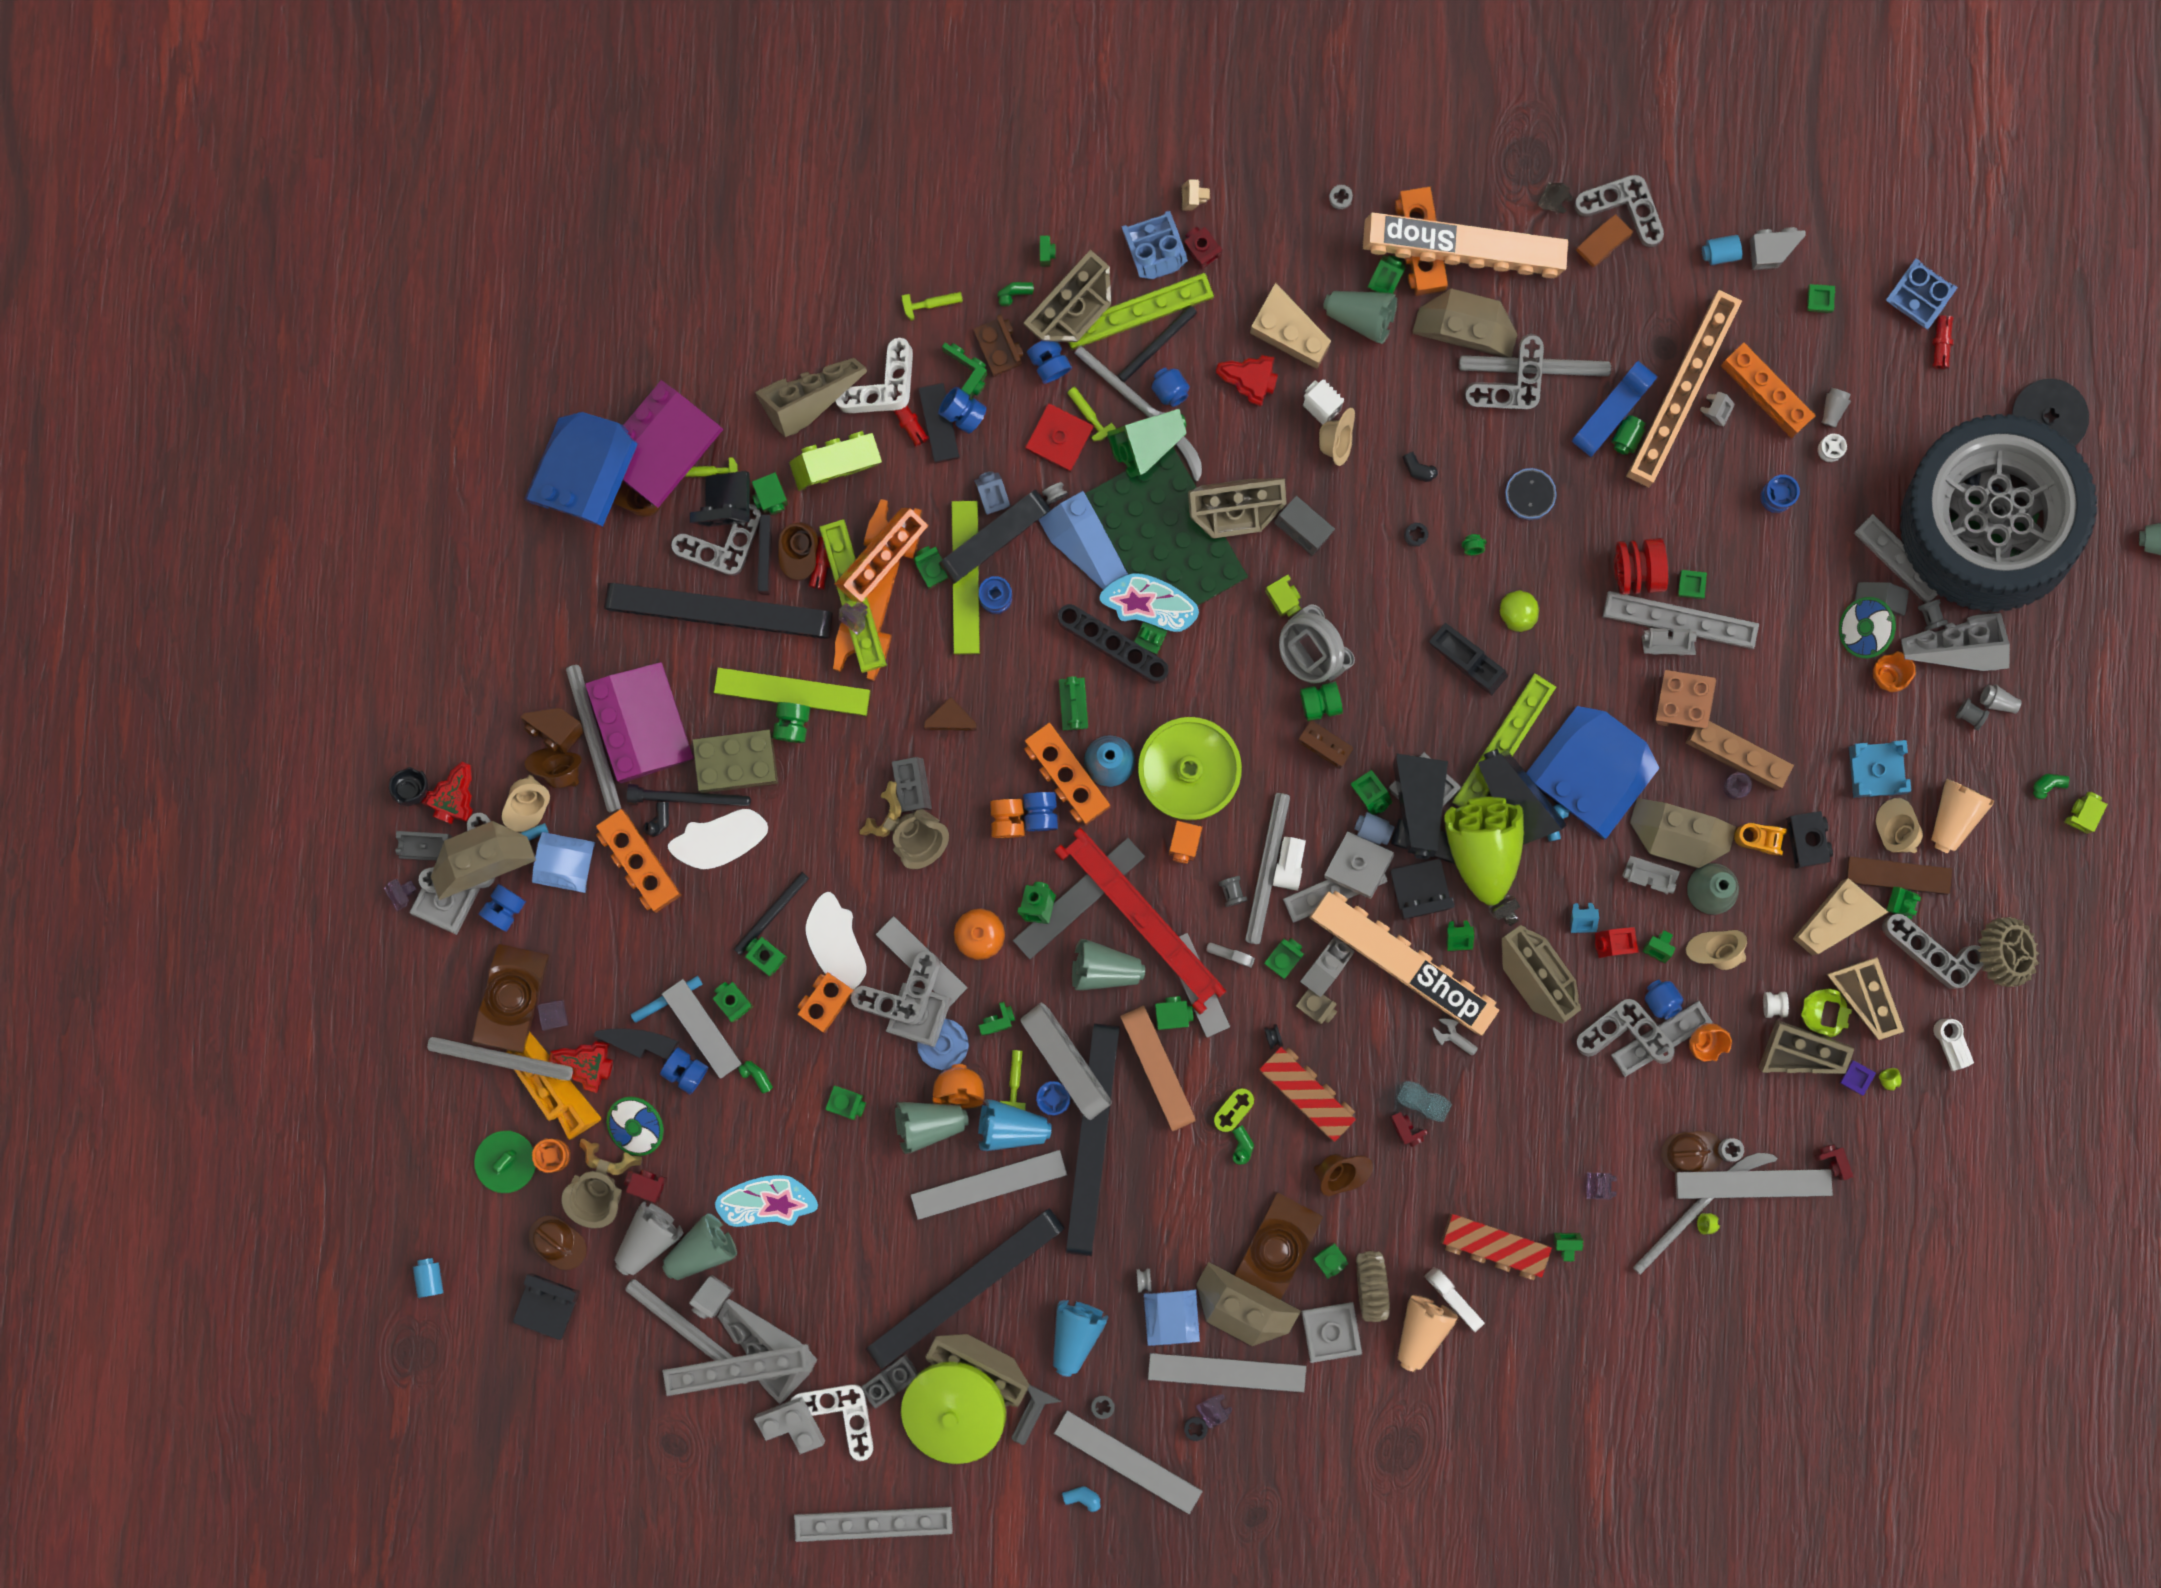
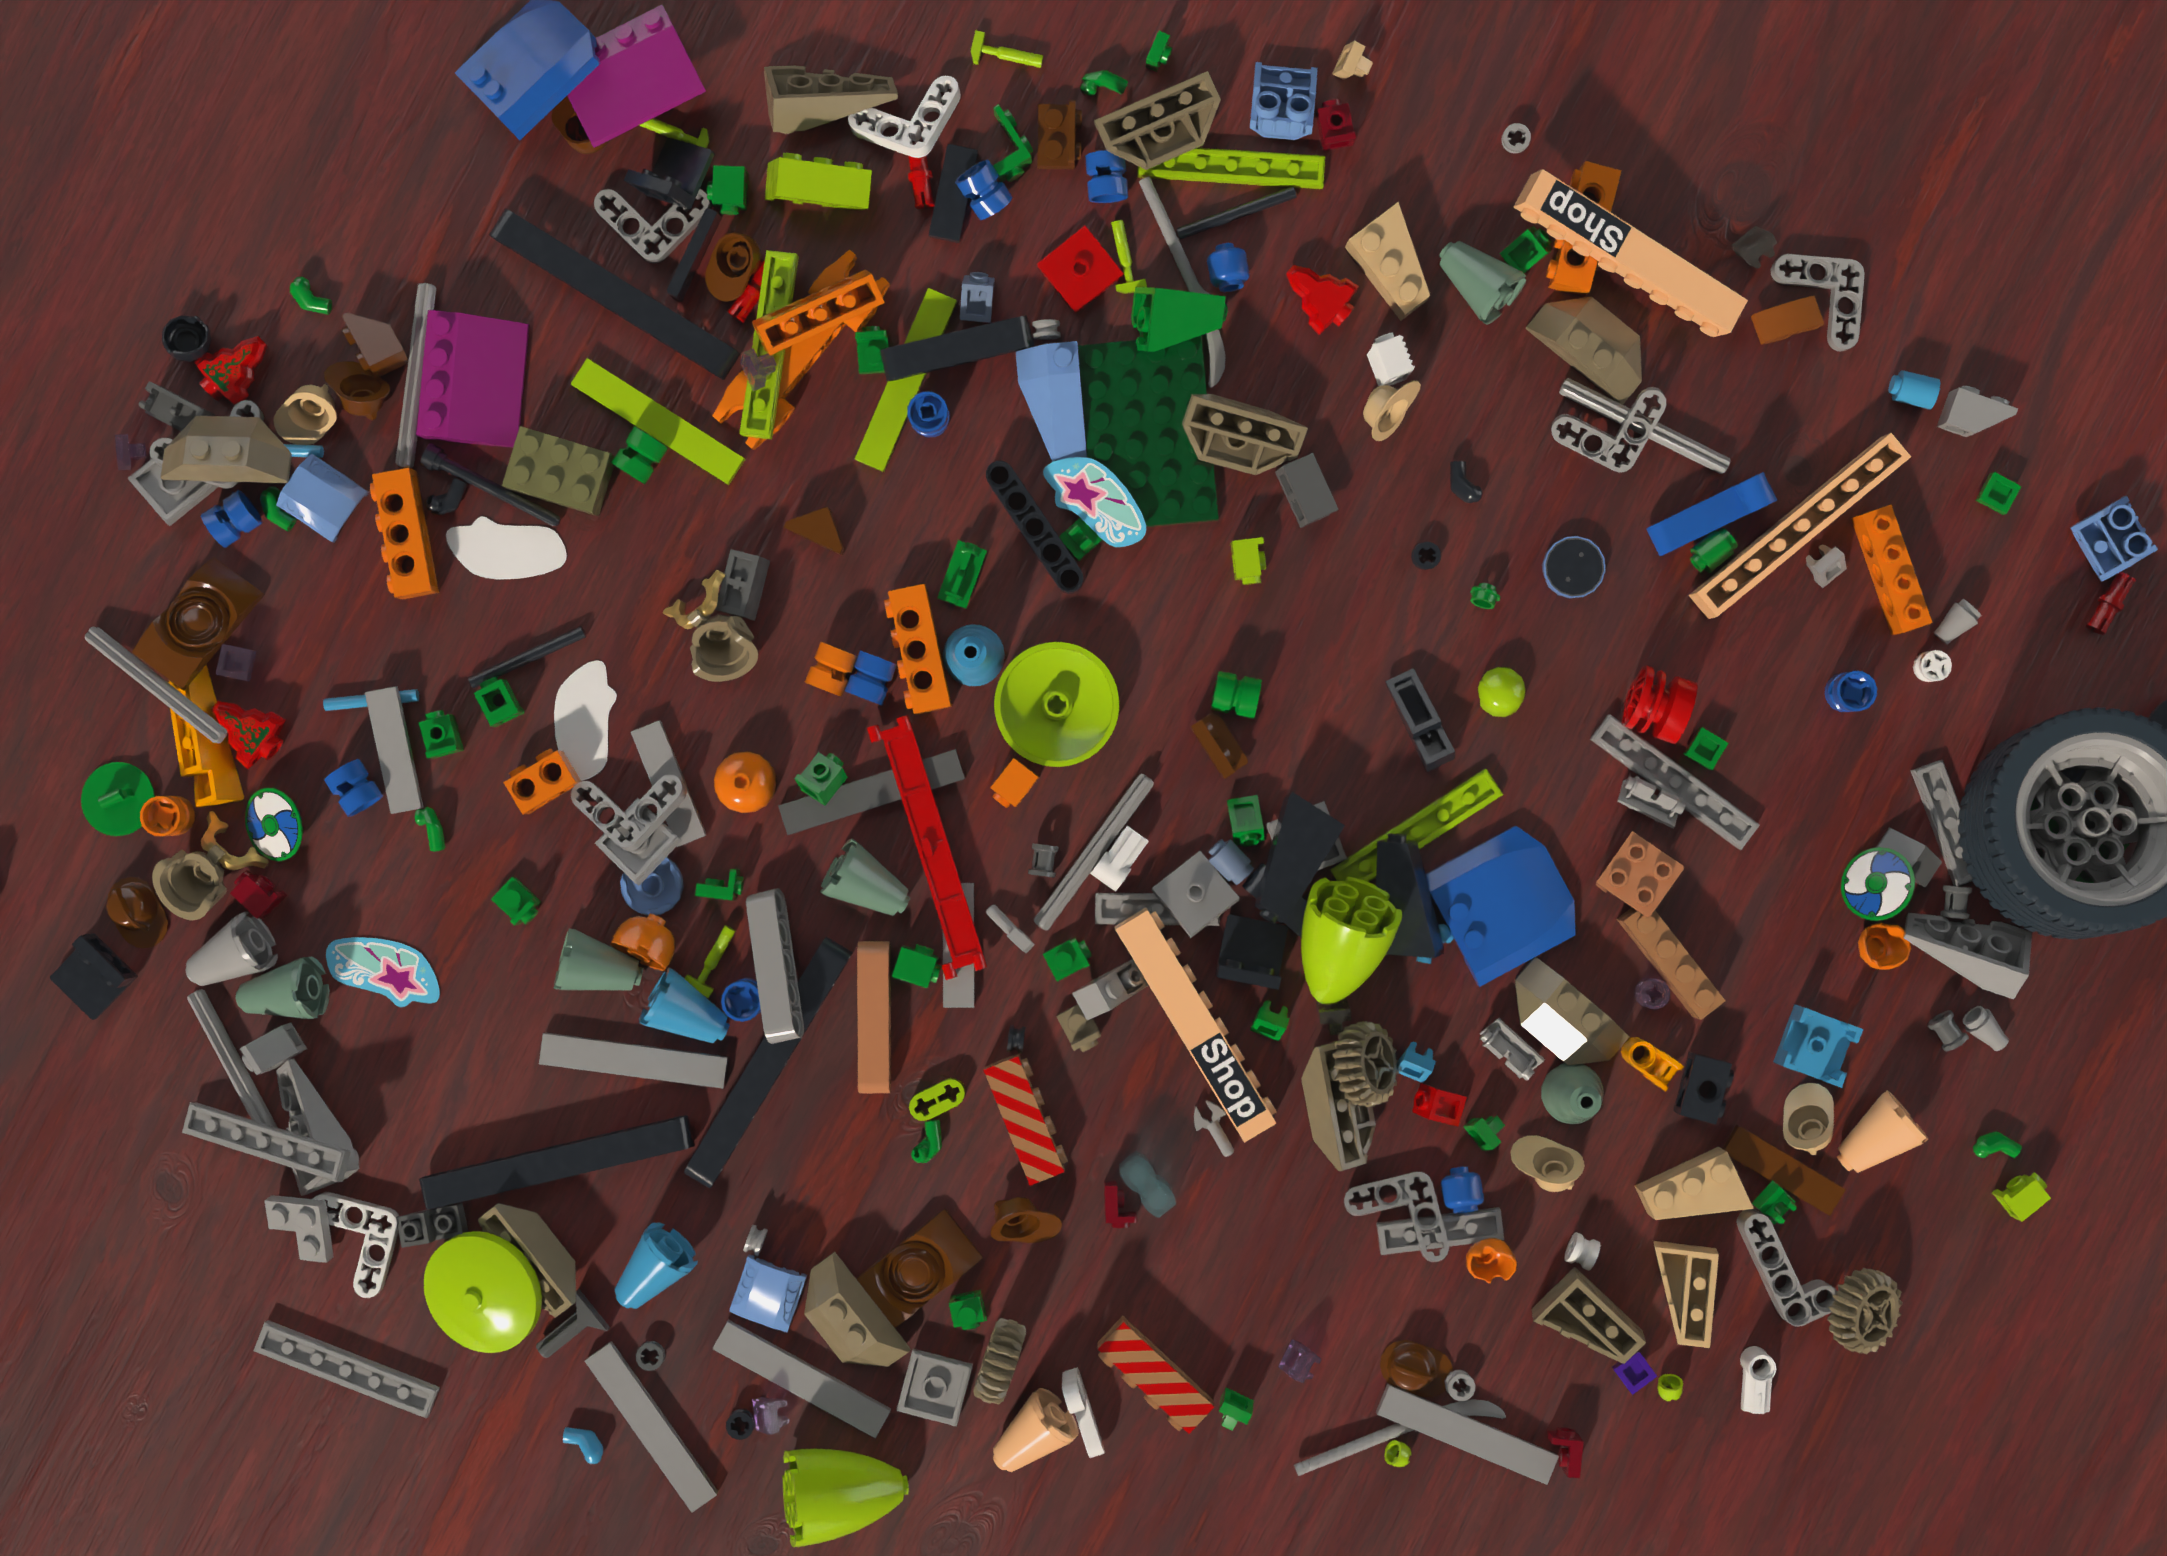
camera: 25 degrees right, 5 degrees up
(486, 718) = (306, 300): none -> green arm
(528, 888) = (274, 513): none -> green arm
(639, 1041) = (318, 733): black slope -> none
(1292, 1445) = (837, 1493): none -> lime cylinder
(1335, 657) = (1265, 604): light grey piece -> none
(1546, 934) = (1365, 1064): none -> dark tan gear
(1814, 1007) = (1619, 1277): lime helmet -> none

